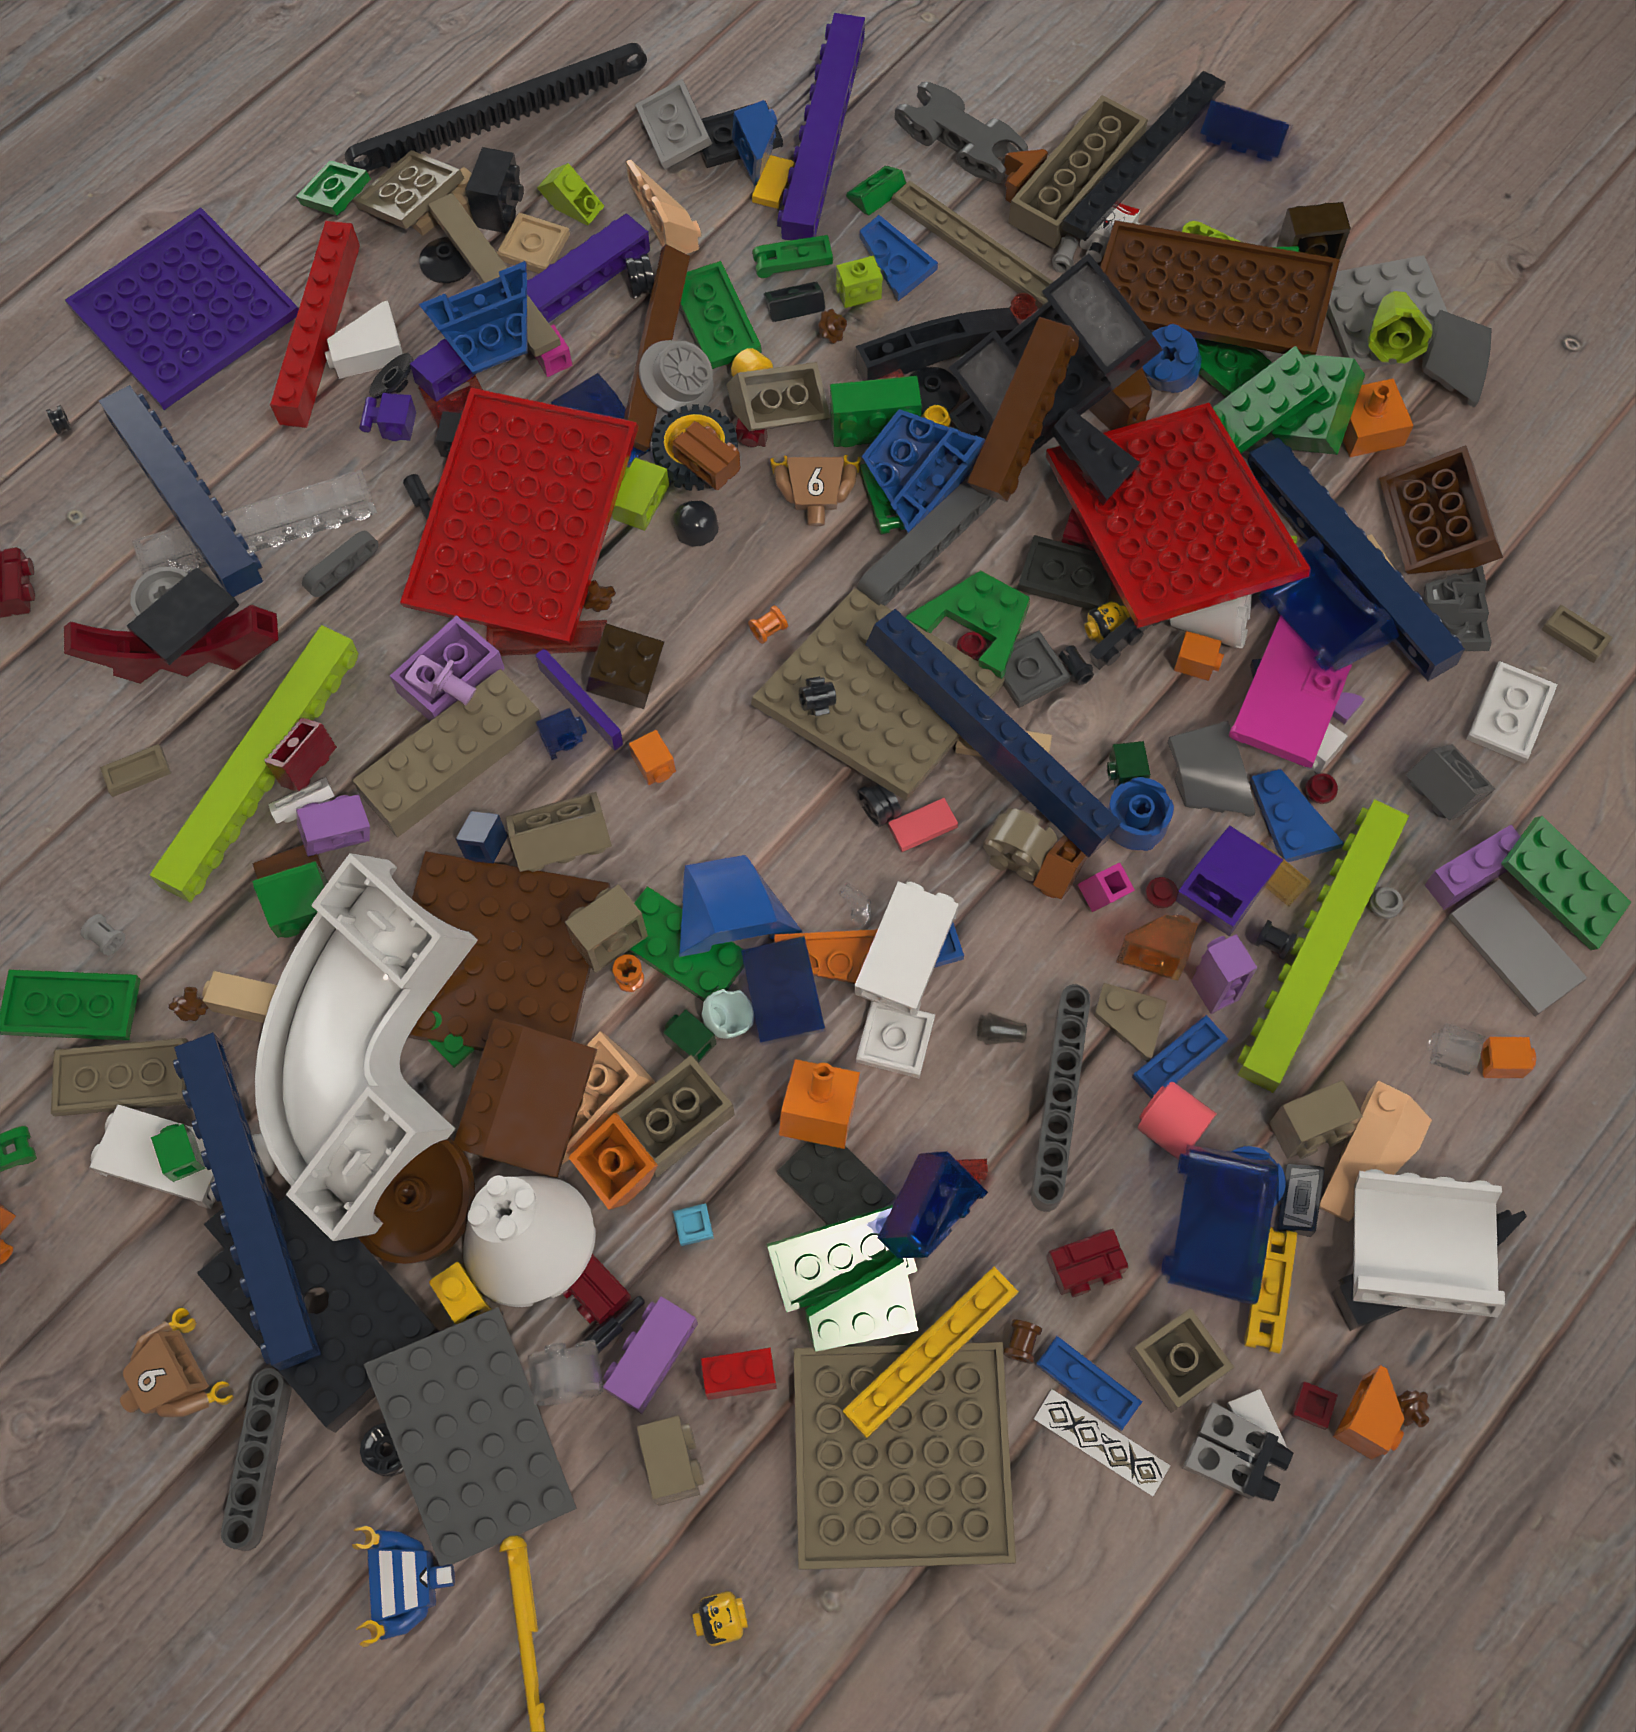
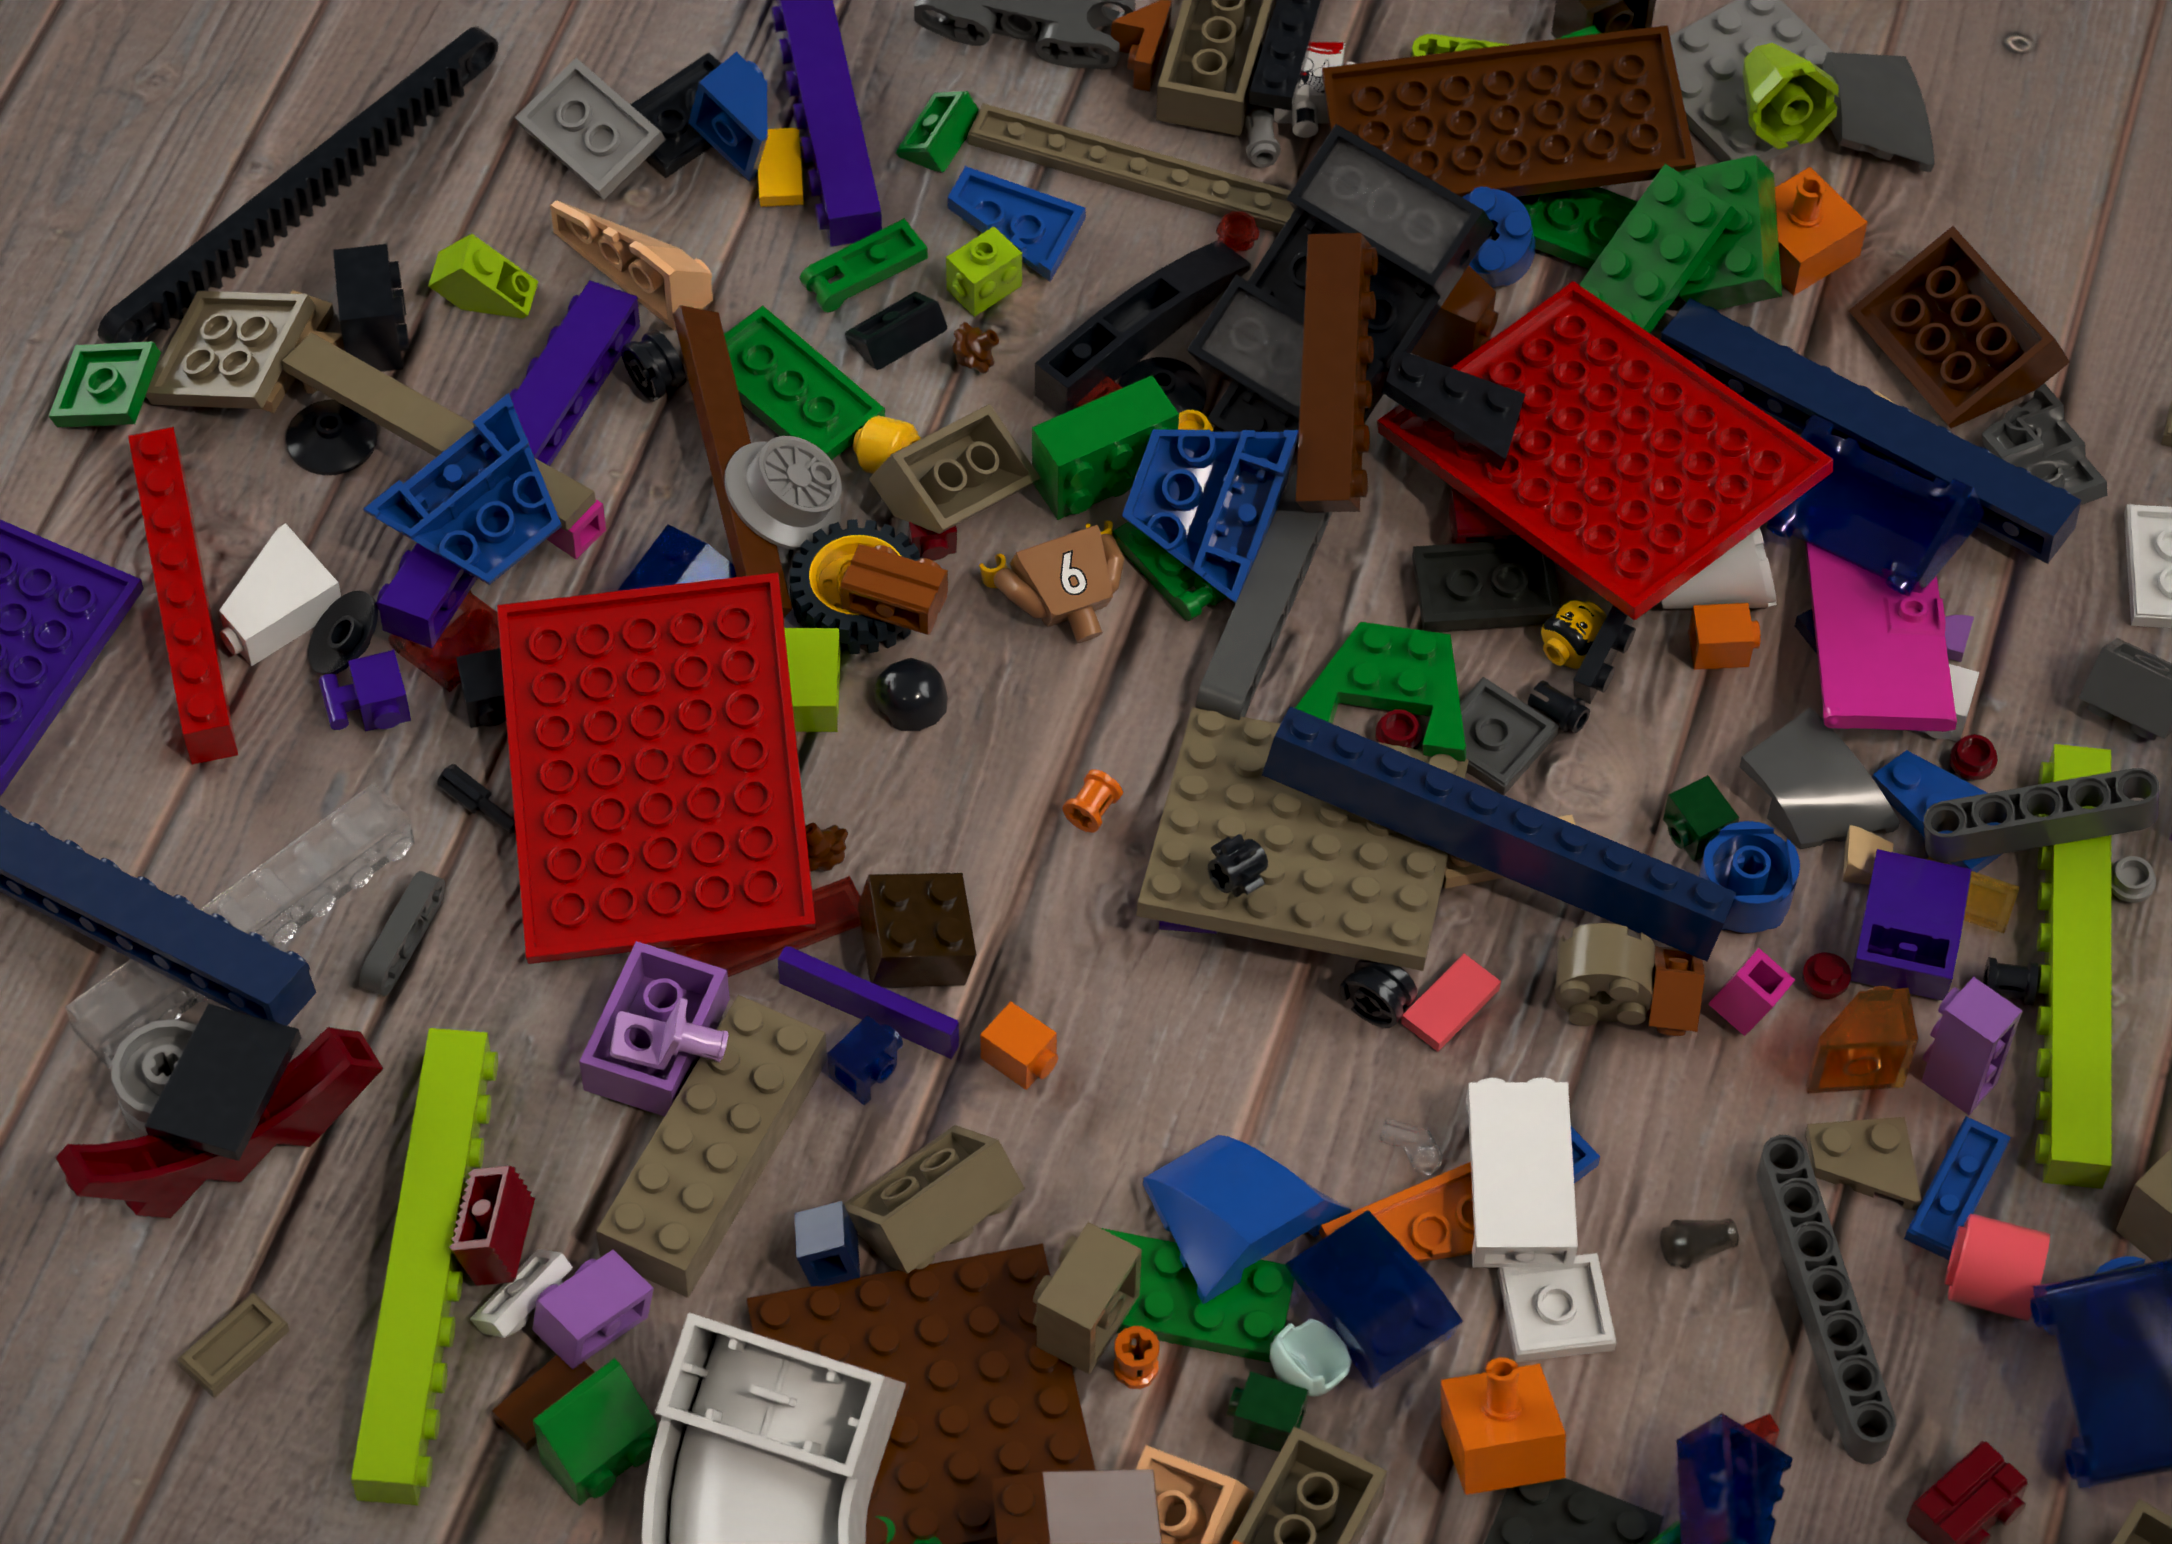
camera: 25 degrees left, 10 degrees down
(533, 242) = (458, 368): tan tile -> none
(1219, 823) = (1860, 854): none -> tan slope
(1354, 853) = (2060, 800): none -> dark grey beam

